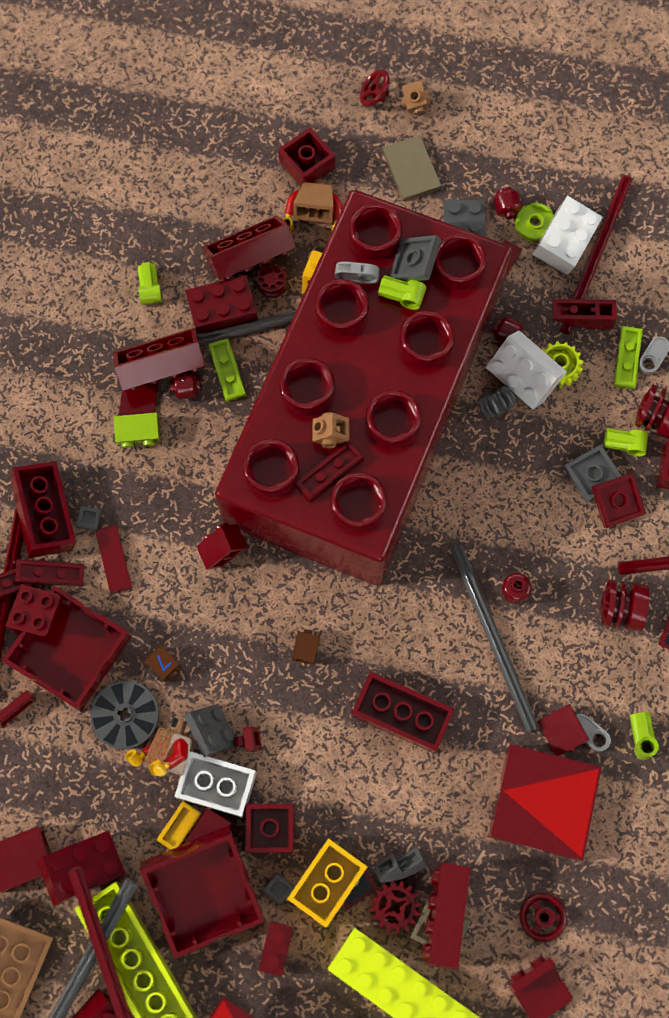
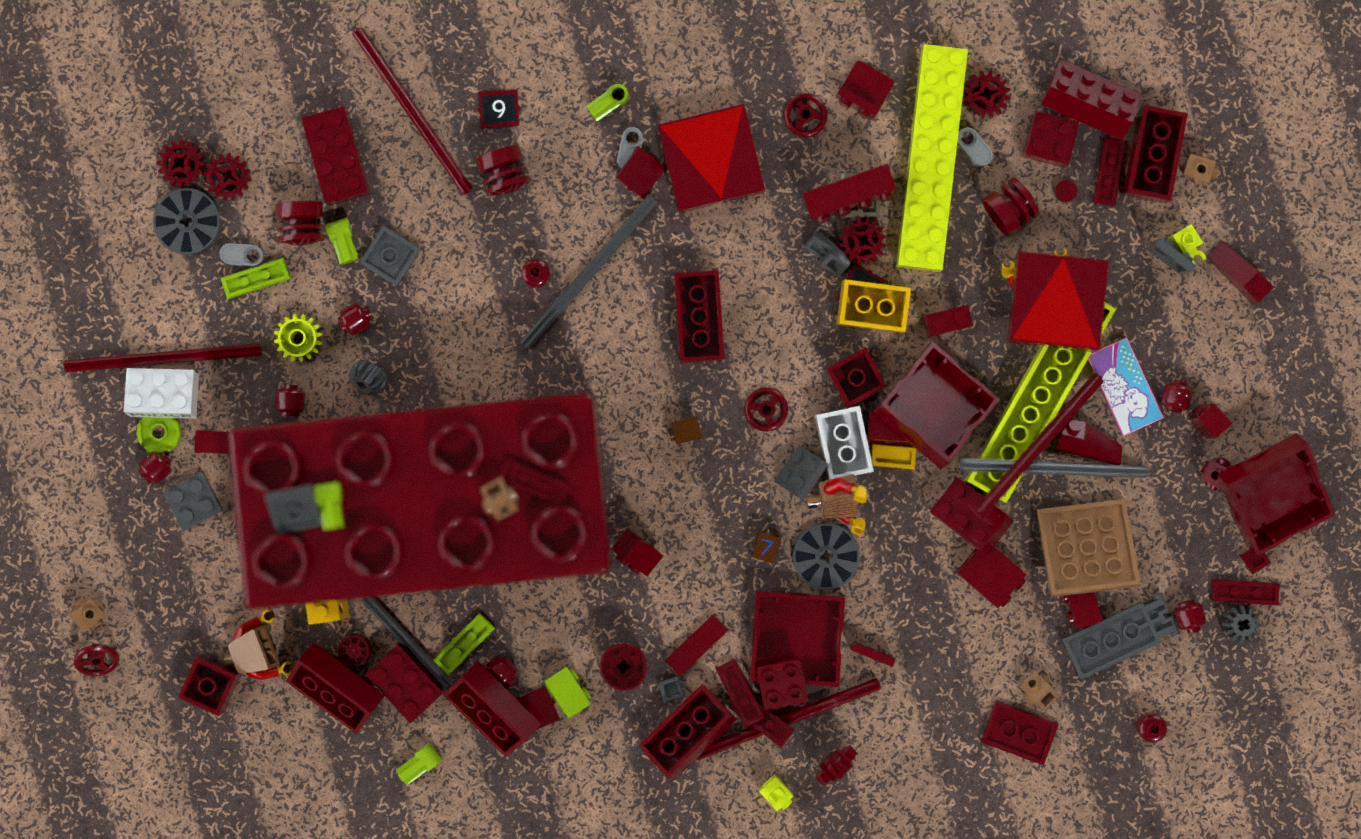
camera: 115 degrees left, 15 degrees up
(130, 472) = (631, 677): none -> dark red wheel
(250, 739) = (790, 435): dark red tile -> none
(268, 728) = (749, 405): none -> dark red piece
(279, 889) = (899, 345): dark grey tile -> none
(357, 272) = (333, 556): light grey piece -> none
(411, 168) = (163, 580): dark tan tile -> none
(526, 369) = (323, 365): white brick -> none
(552, 417) = (354, 319): none -> dark red head
(585, 312) = (236, 338): dark red slope -> none
(618, 500) = (404, 221): dark red tile -> none

